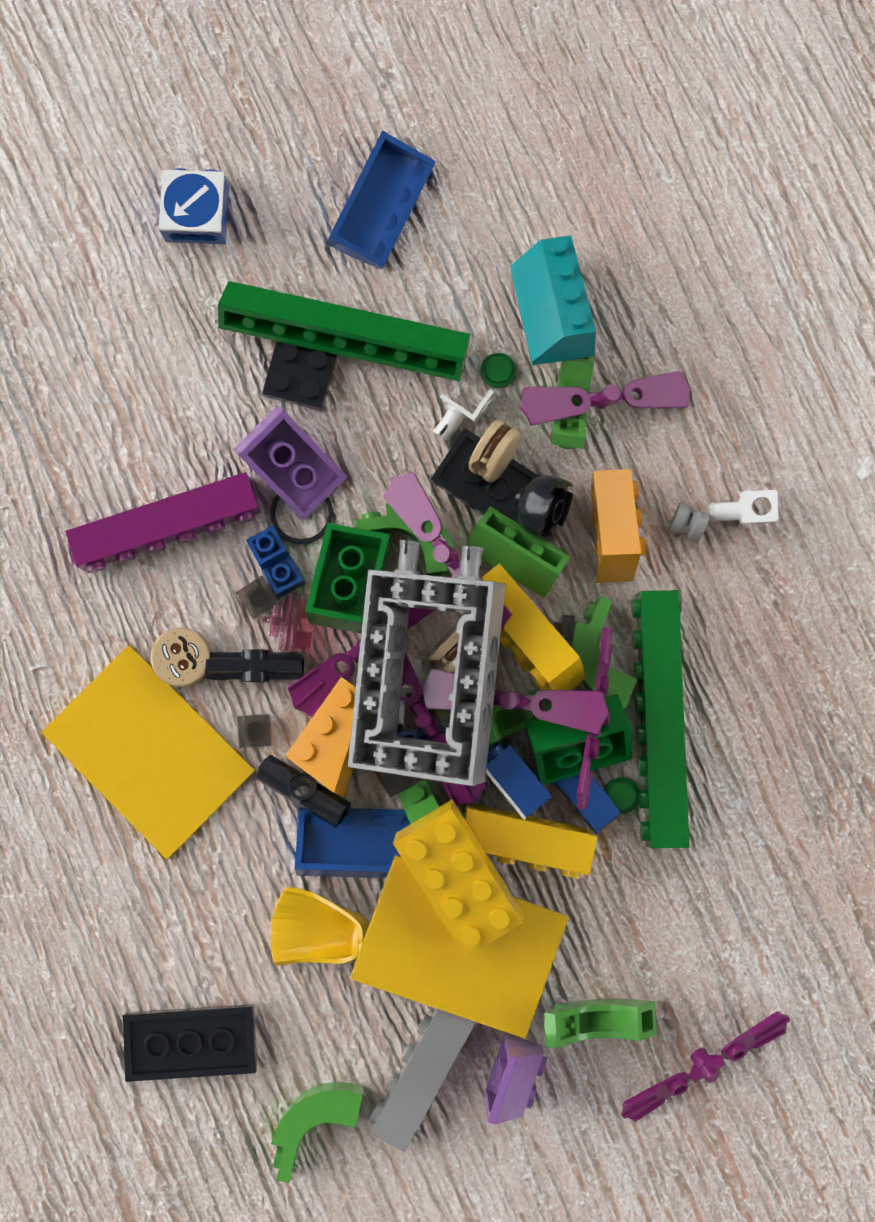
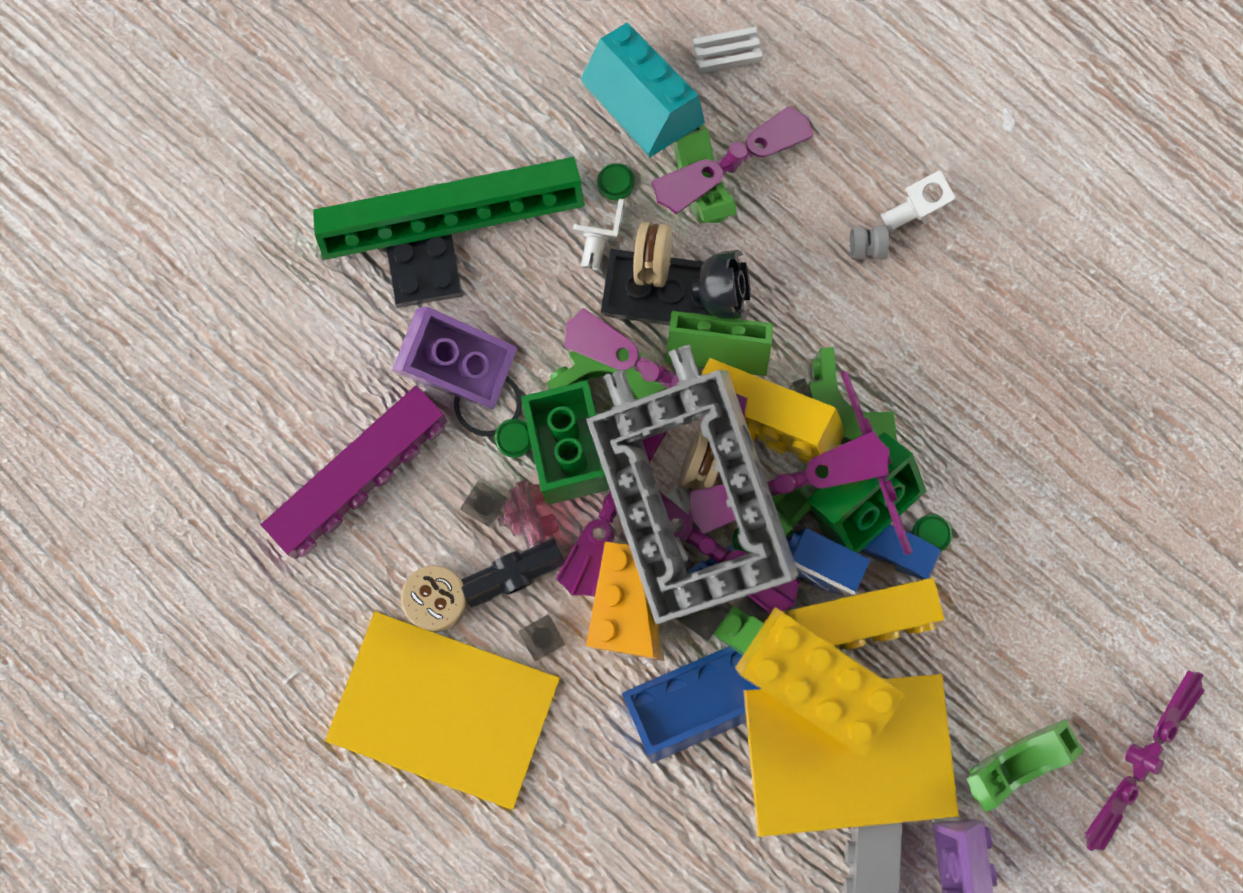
camera: 25 degrees left, 5 degrees down
(194, 206) = (245, 155): piece -> none
(275, 561) = (484, 461): blue slope -> none
(287, 780) = (641, 675): black piece -> none
(306, 552) = (512, 438): none -> green piece
(314, 930) = (696, 808): yellow hair -> none
(381, 201) = (426, 72): blue slope -> none
(616, 525) = (802, 275): light orange wedge -> none
(651, 285) = (748, 34): none -> white tile
(662, 719) = (935, 441): green brick -> none

